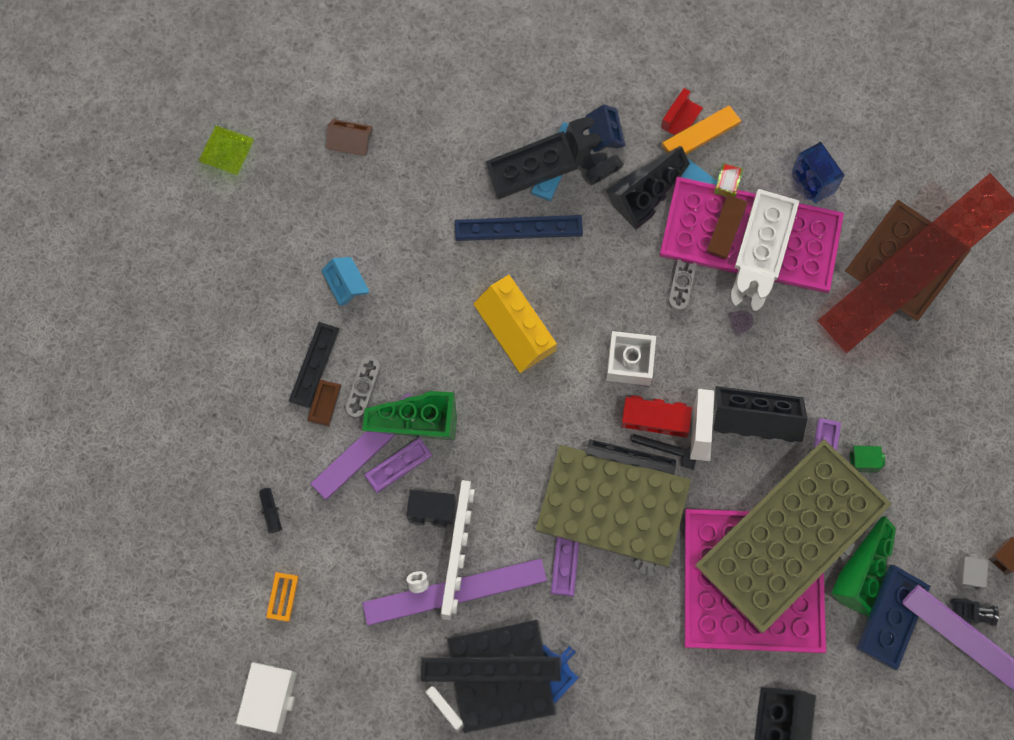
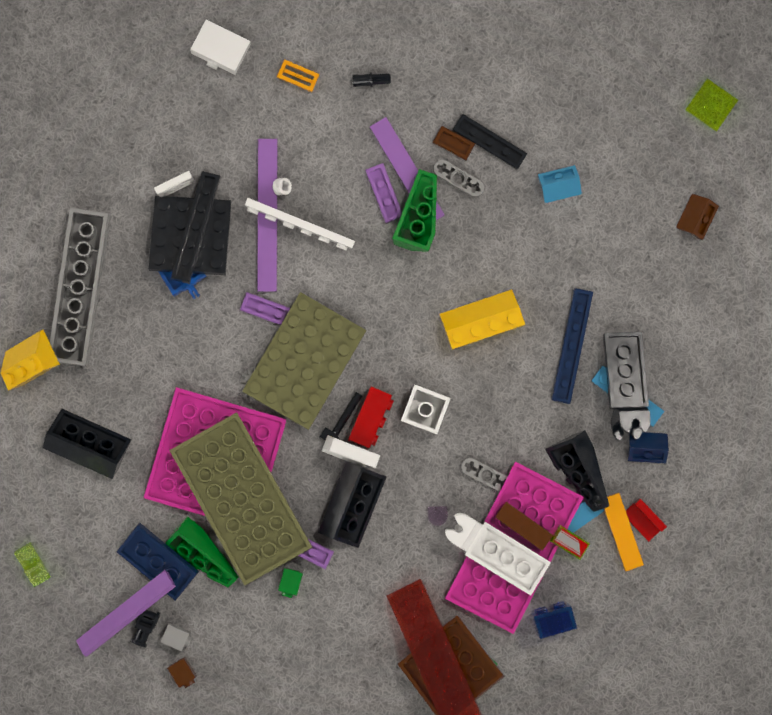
camera: 100 degrees right, 15 degrees up
(430, 507) = (340, 211): black brick -> none
(604, 169) = (607, 435): black beam -> none
(630, 456) = (341, 386): black tile -> none

